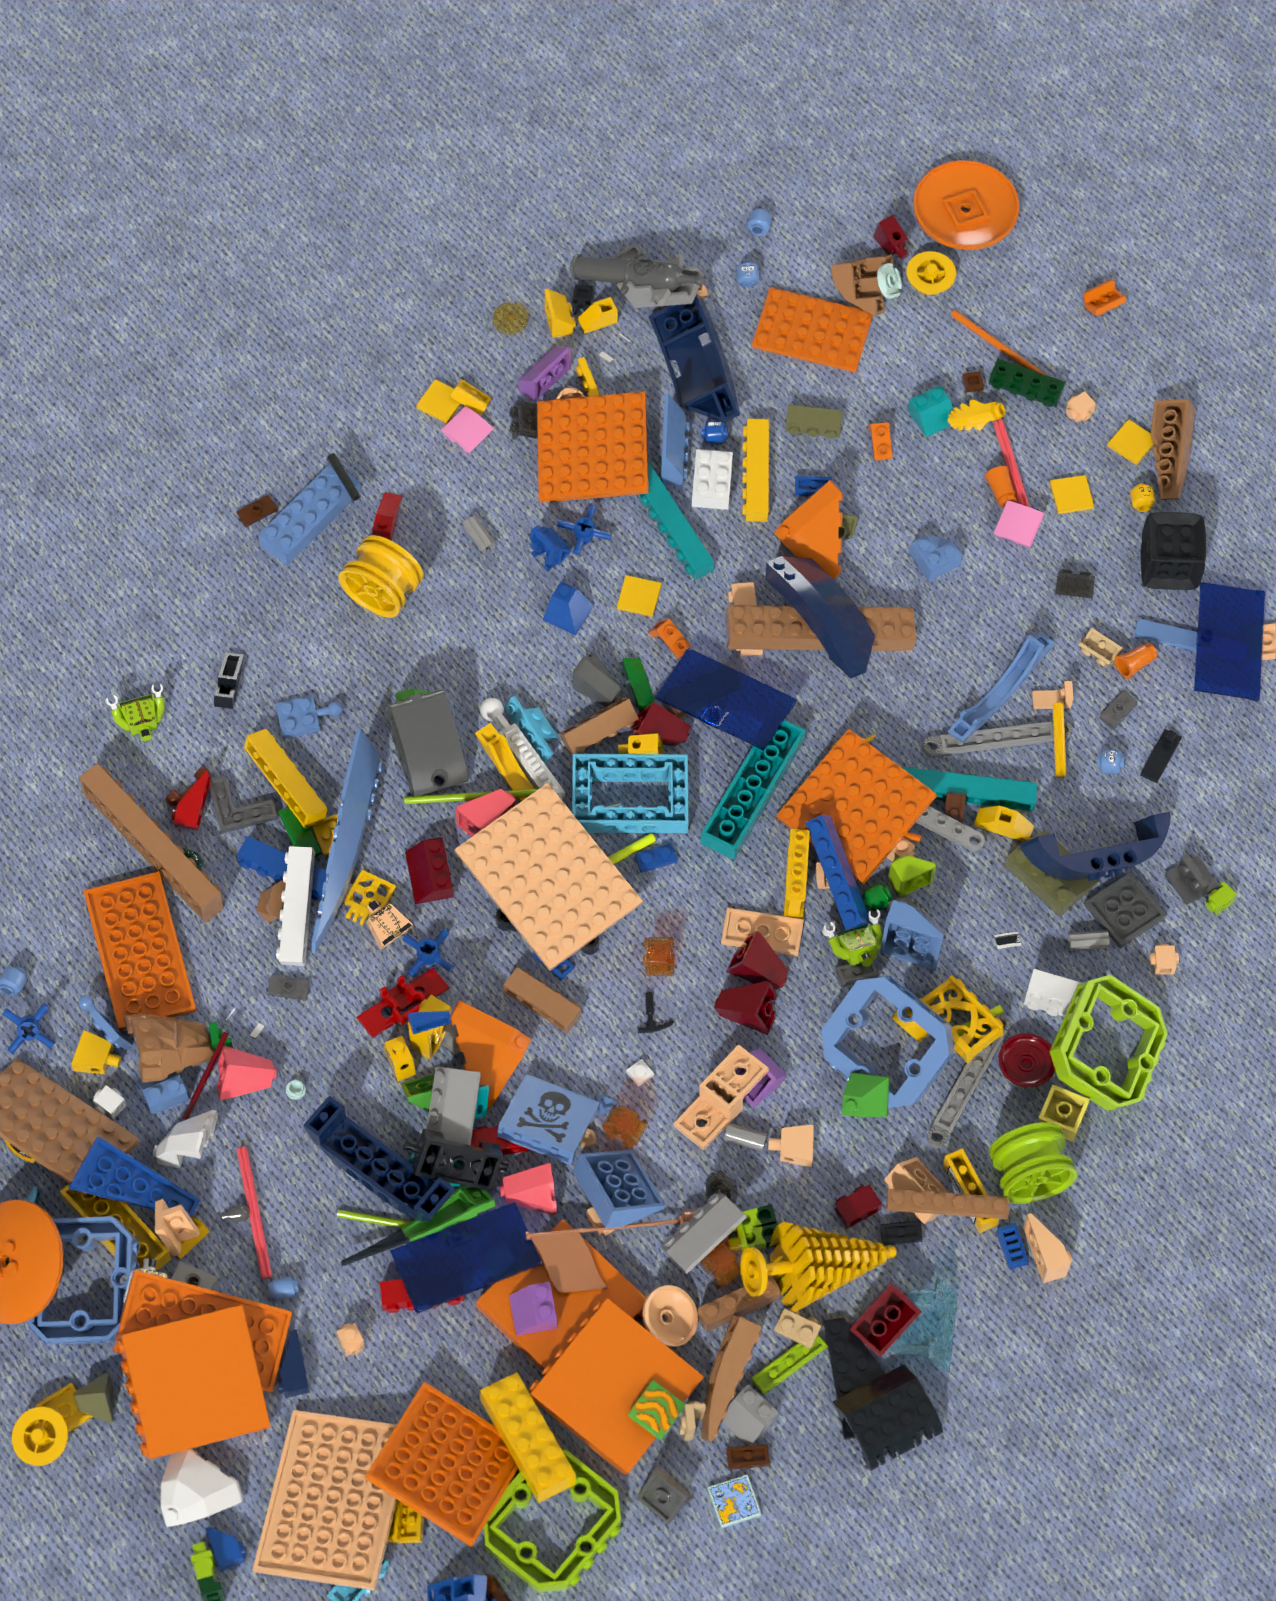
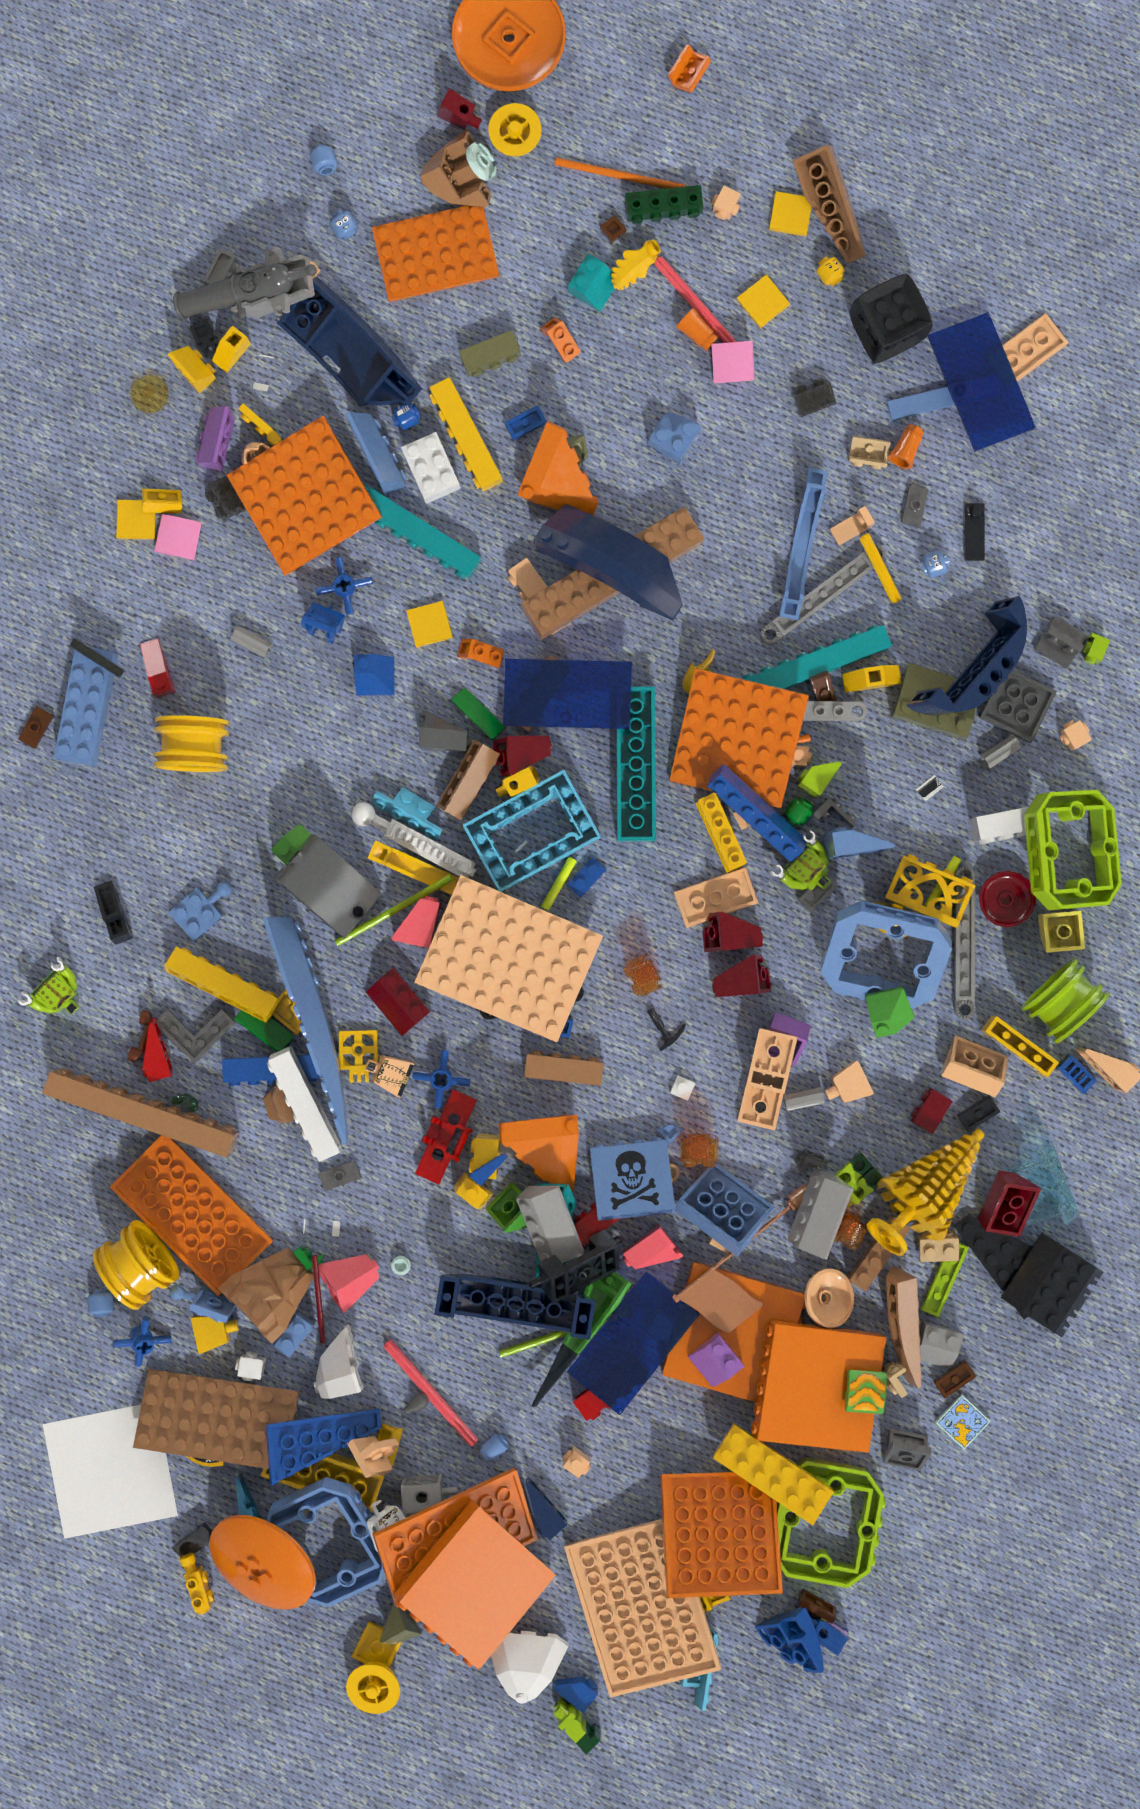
camera: 25 degrees left, 25 degrees up
(67, 954) = (135, 1265): none -> yellow wheel
(947, 1203) = (1011, 1077): medium nougat plate -> none

